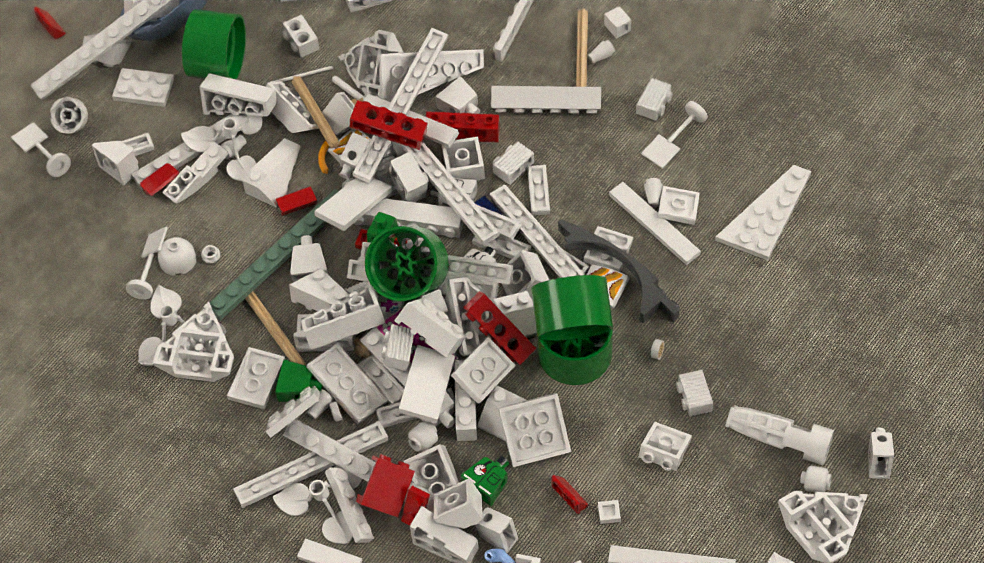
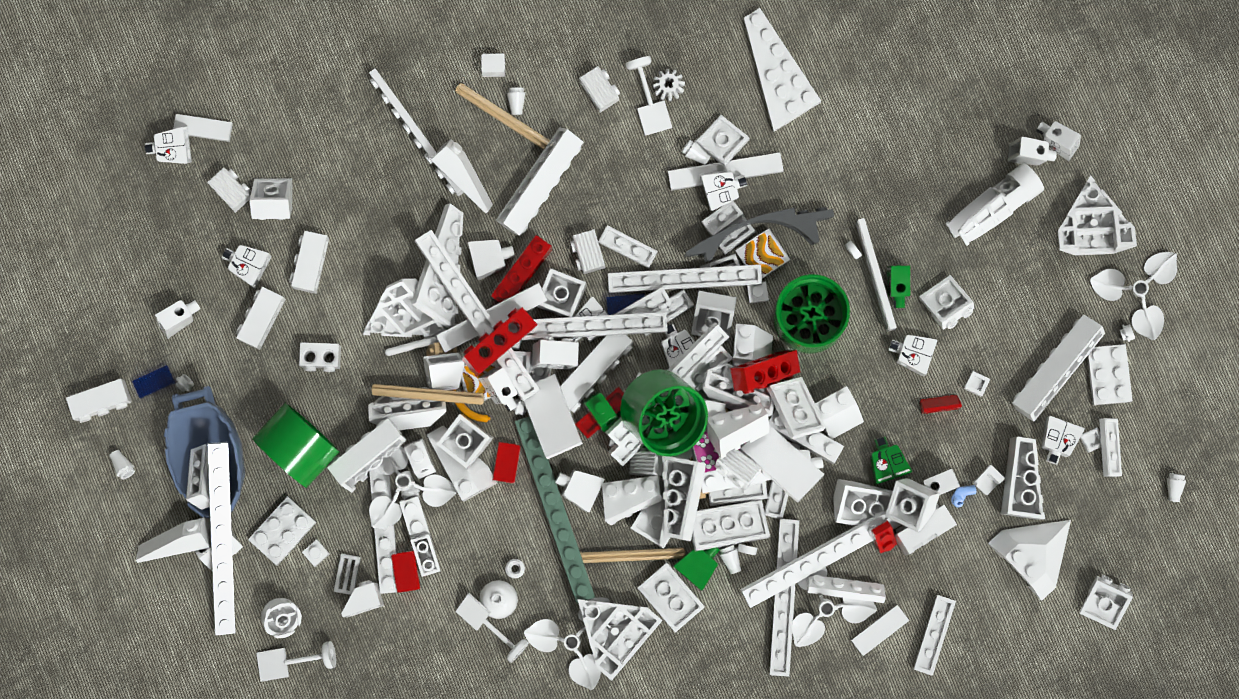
camera: 60 degrees left, 25 degrees up
(49, 23) = (145, 579): red slope -> none
(90, 20) = (180, 539): none -> white wedge
(139, 117) = (316, 553): none -> white plate
(260, 138) = (419, 458): none -> white torso
(292, 410) = (739, 588): white plate -> none
(295, 159) = (464, 440): none -> white slope
(305, 74) = (362, 379): white axle -> none
(387, 486) = (856, 548): red panel -> none
(423, 437) = (819, 493): white head -> none
(513, 38) = (457, 167): none -> white wedge
(534, 429) = (873, 398): white plate -> none
(571, 307) = (810, 306): green wheel -> none
(601, 446) = (914, 353): none -> white torso
(636, 221) = (721, 187): none -> white torso
(647, 378) = (875, 275): none -> white tile
(653, 395) = (898, 275): none -> green torso
(694, 143) = (676, 85): none -> white gear
(695, 393) = (913, 247): white brick -> none
(816, 479) = (1051, 204): white head -> none
(850, 434) = (1030, 151): none -> white torso

